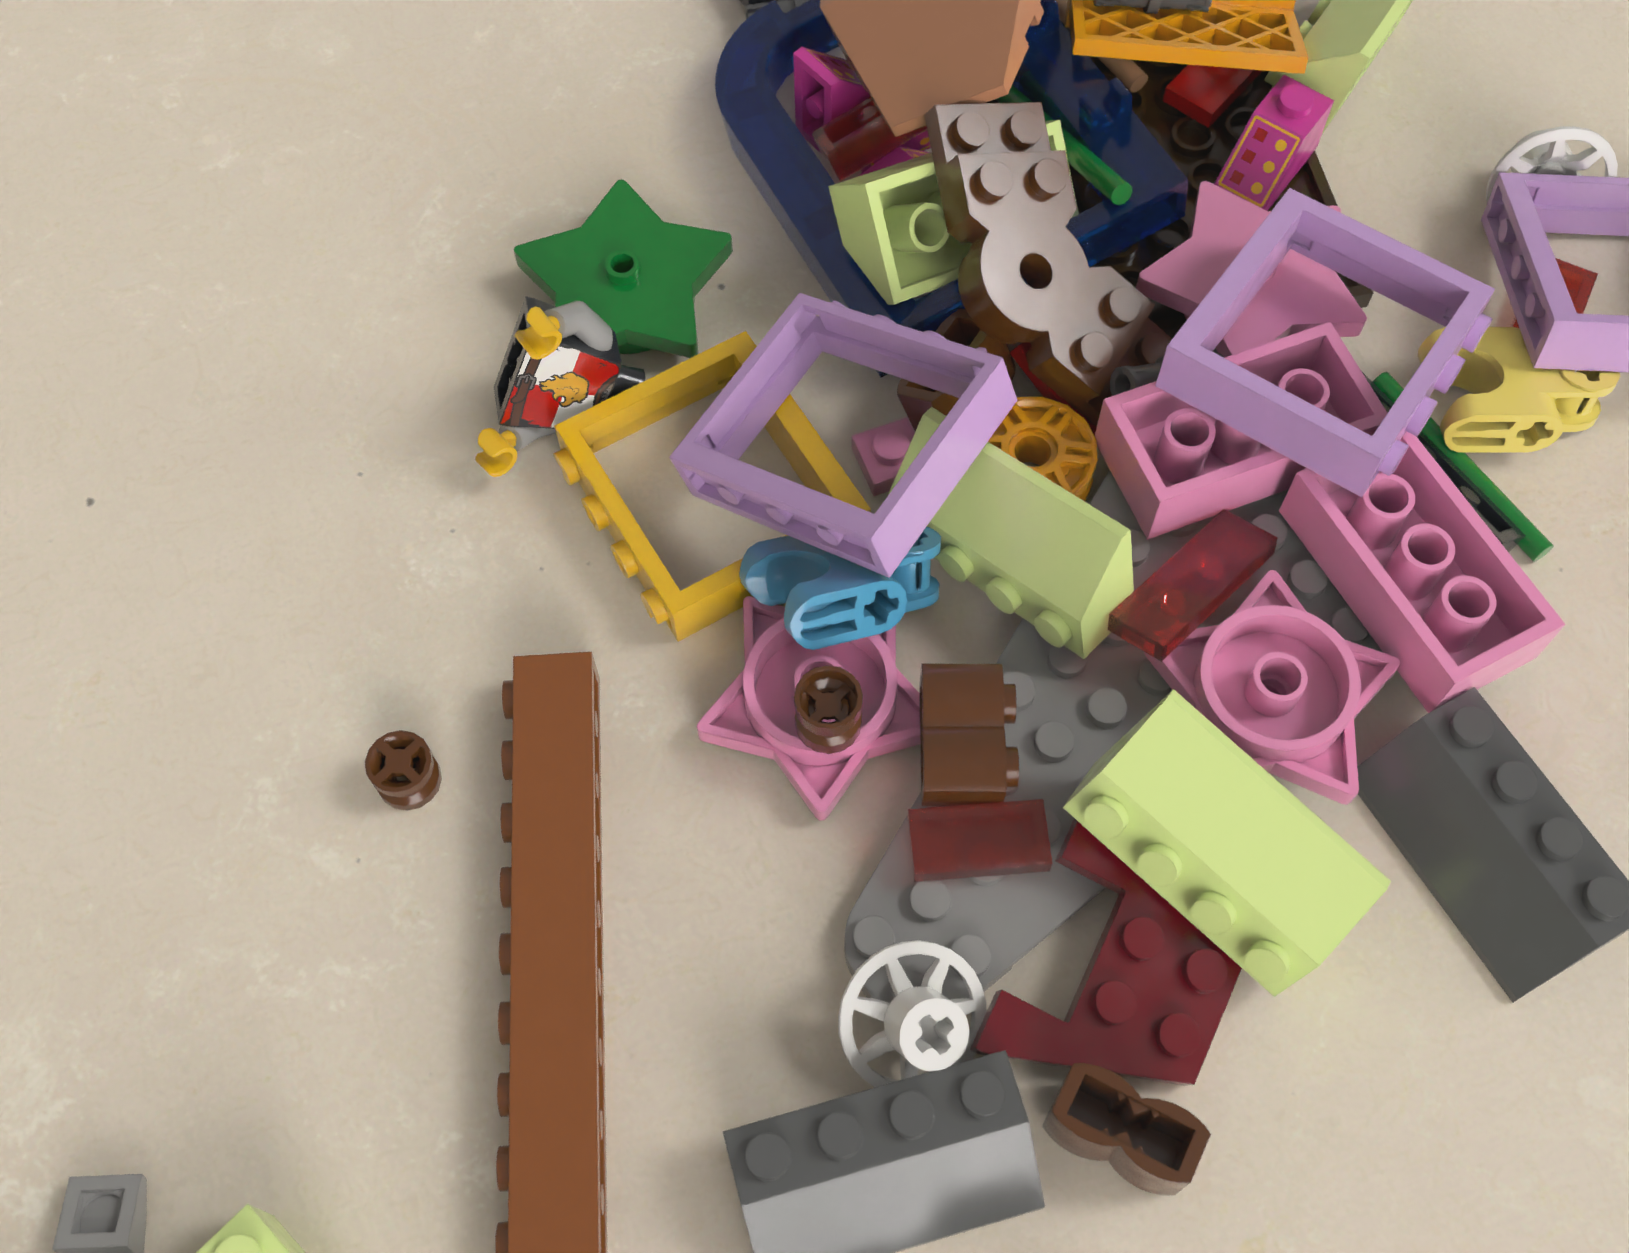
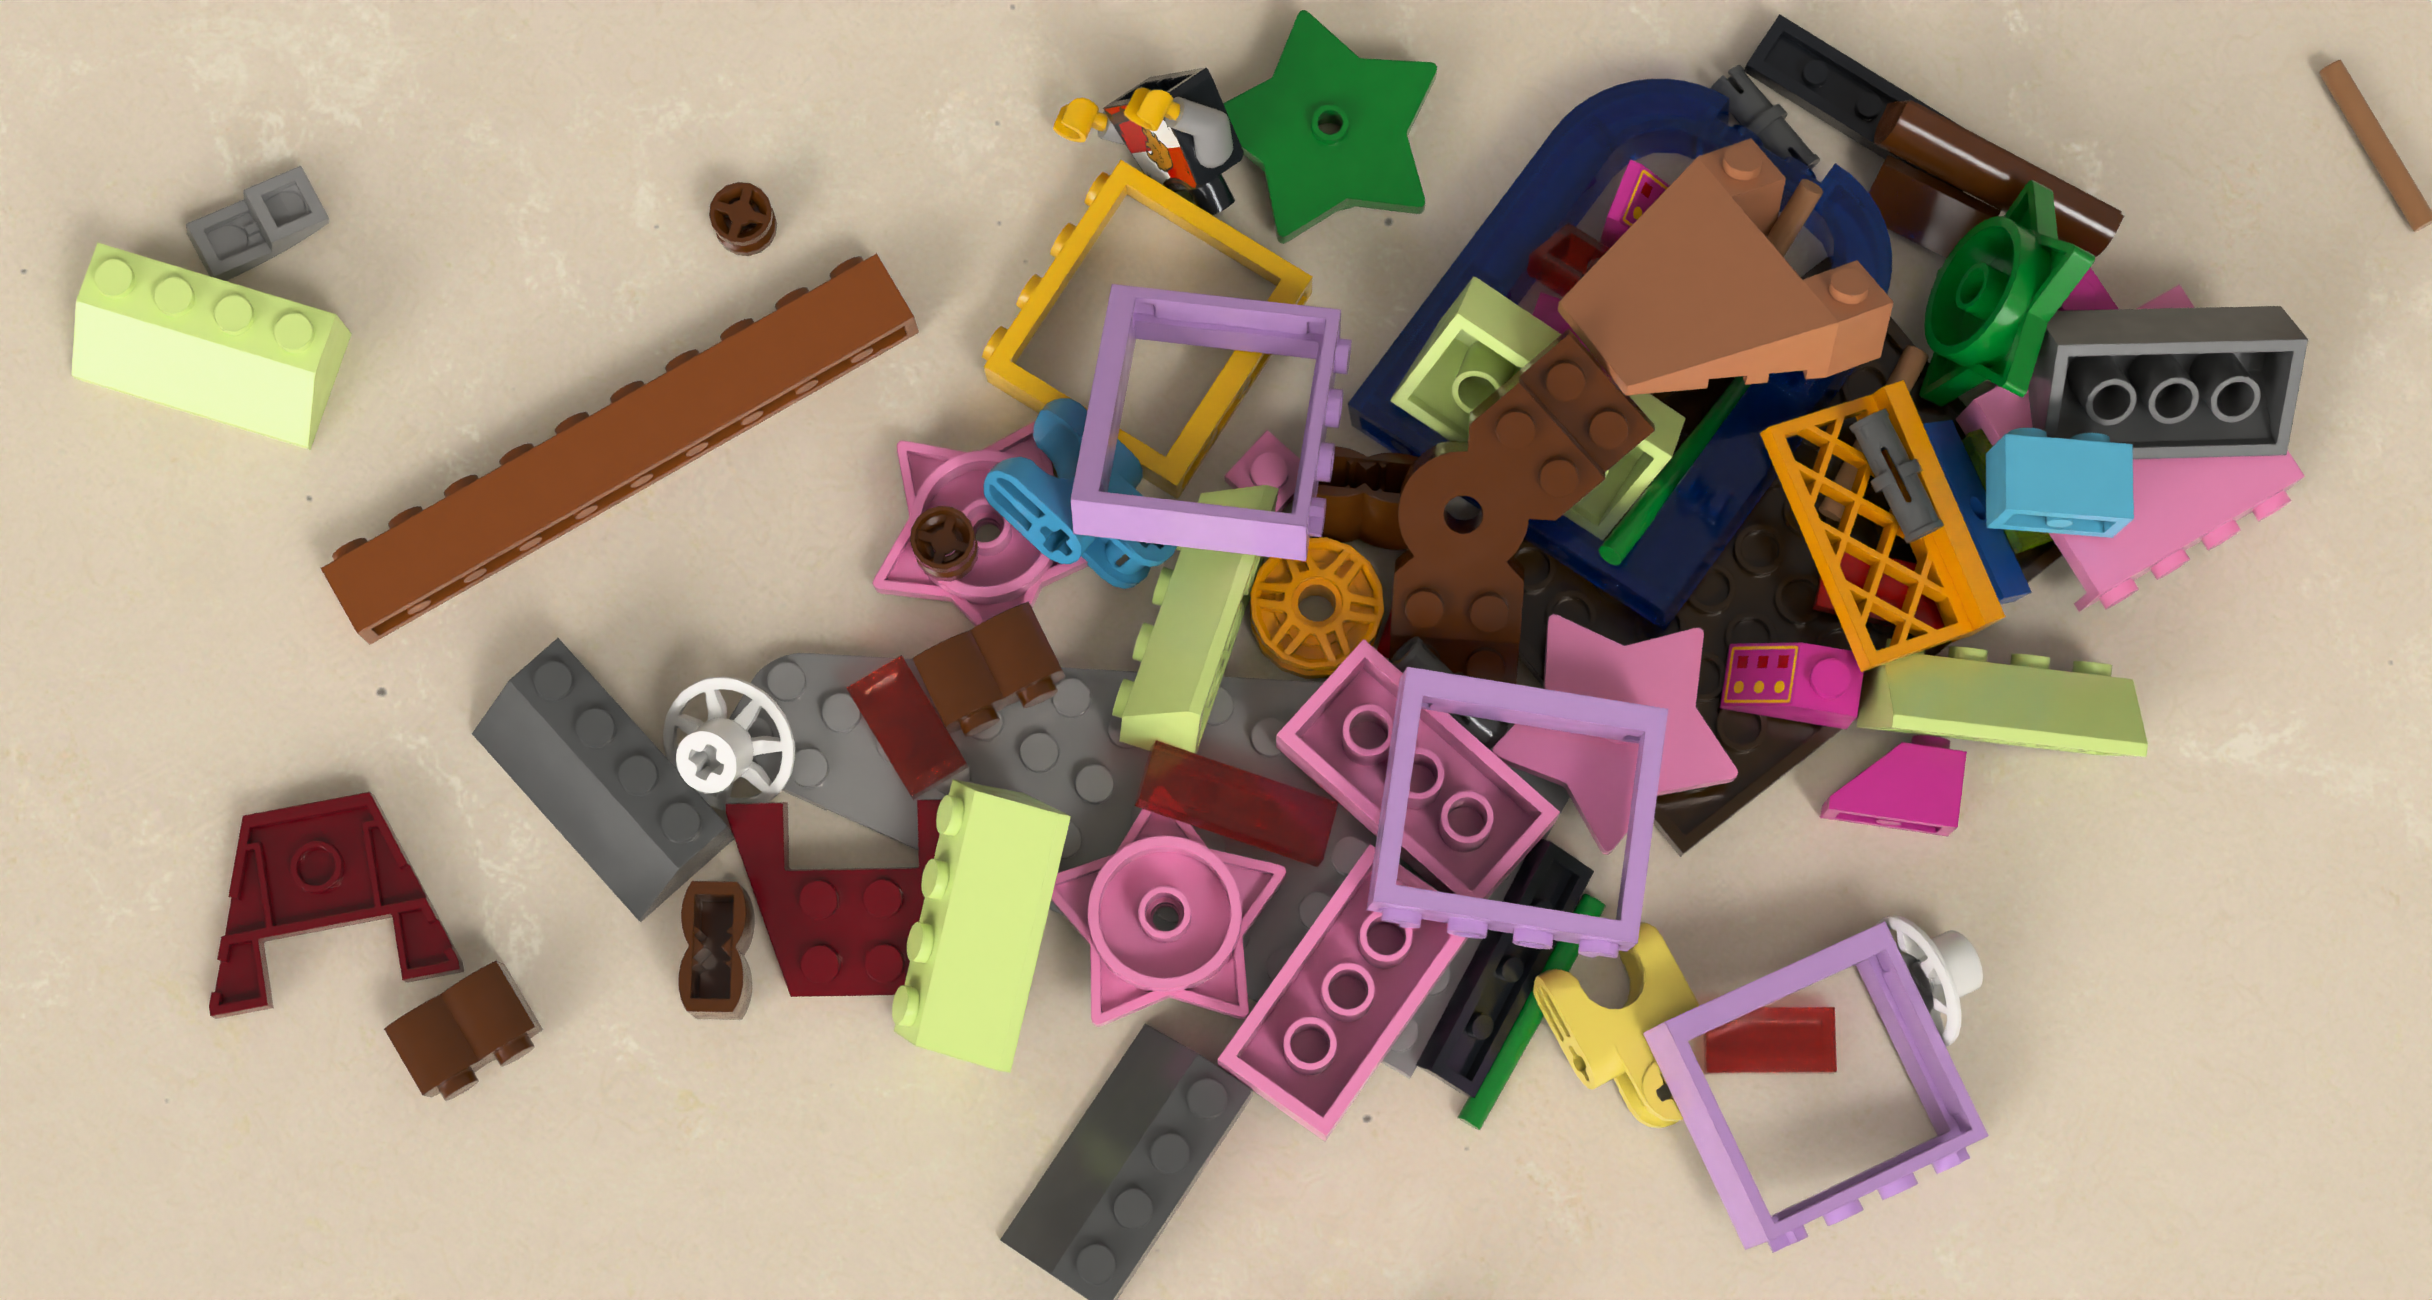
camera: 65 degrees right, 15 degrees up
(1381, 132) = (1906, 789): none -> dark pink slope

